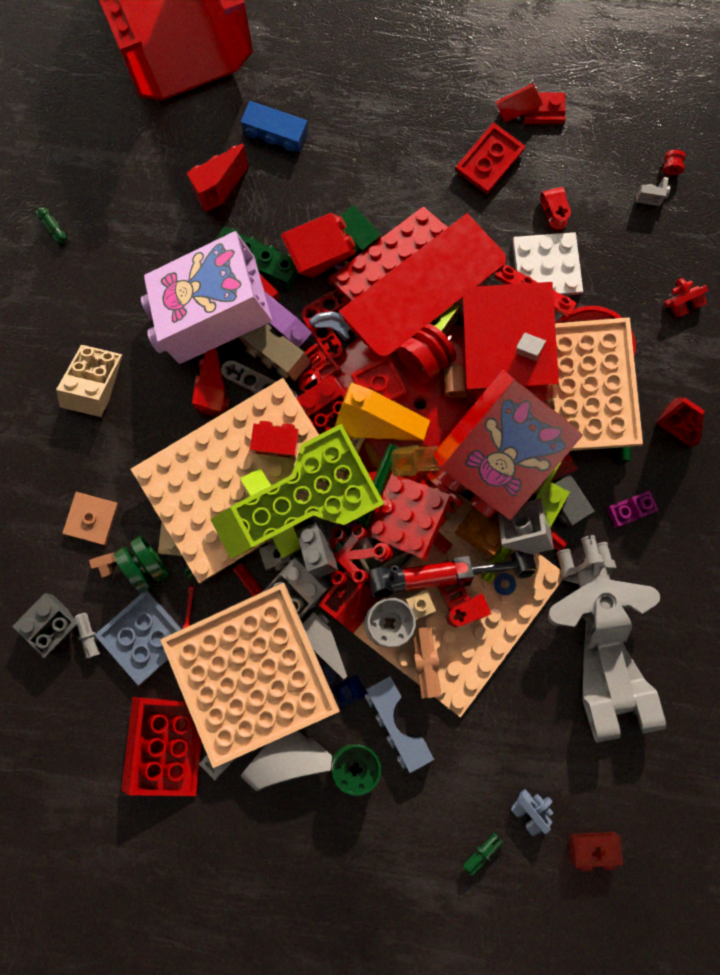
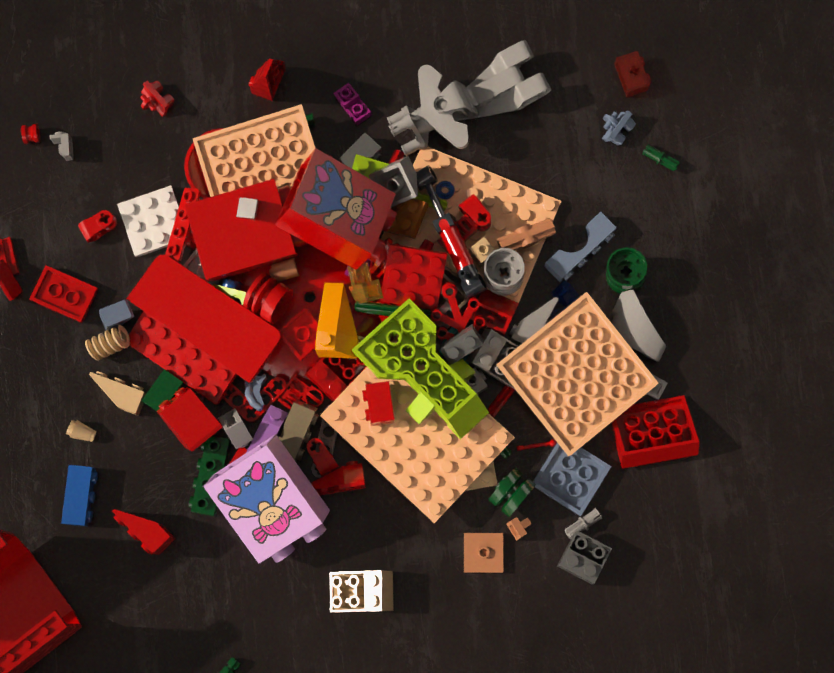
camera: 105 degrees left, 0 degrees up
(239, 371) = (323, 459): none -> red piece
(295, 289) = (235, 429): none -> light grey brick
(341, 142) = (80, 431): none -> tan cone
(367, 188) = (123, 396): none -> tan slope
(425, 186) = (108, 343): none -> tan piece
(452, 198) = (116, 314): none -> sand blue slope
(455, 325) = (231, 284): none -> blue tile

